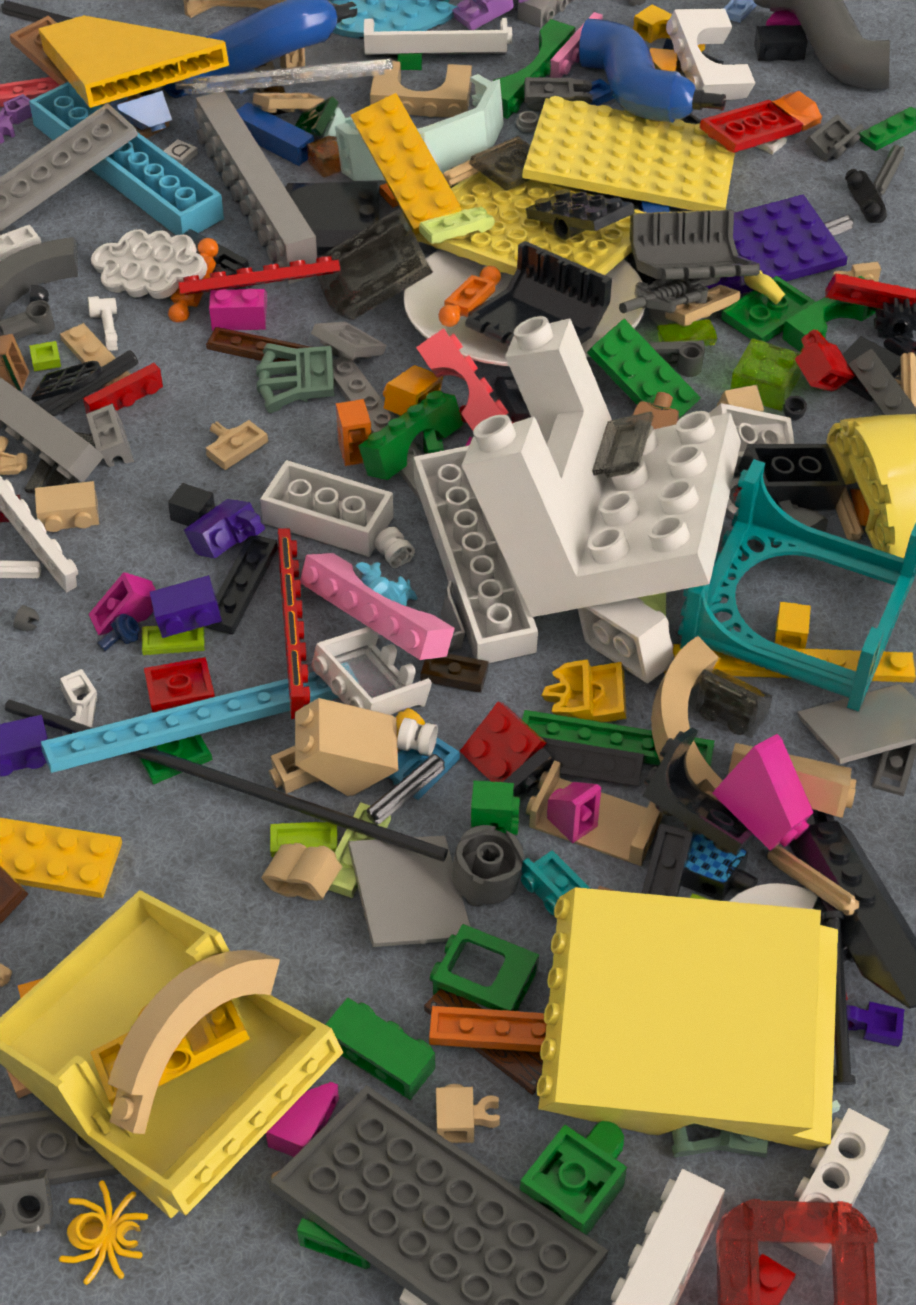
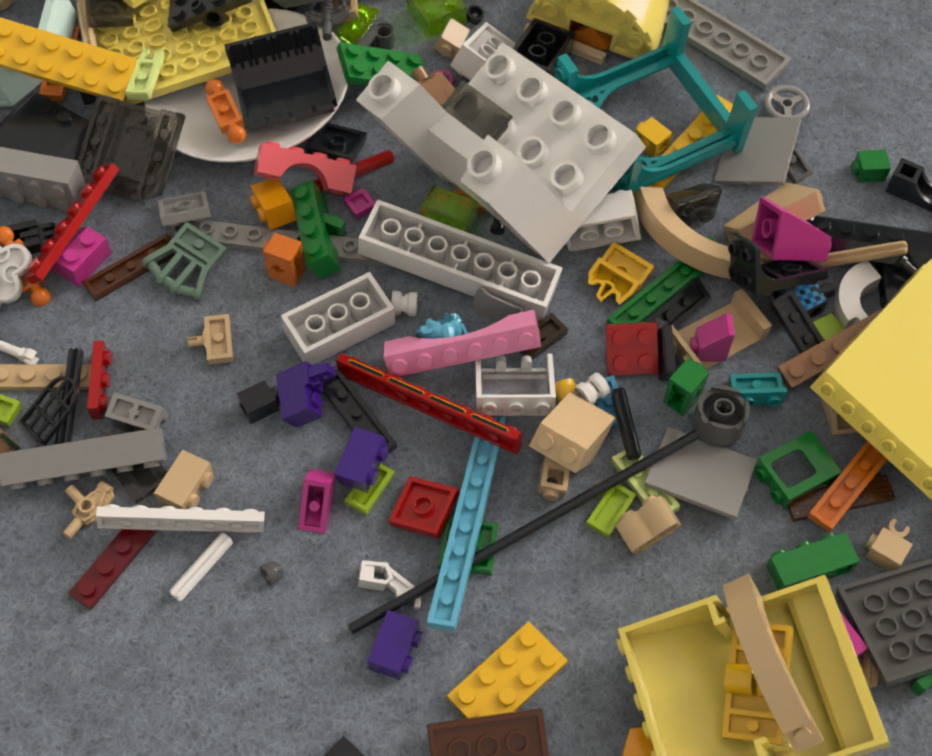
camera: 55 degrees left, 10 degrees up
(124, 628) = (339, 512): dark blue plate -> none

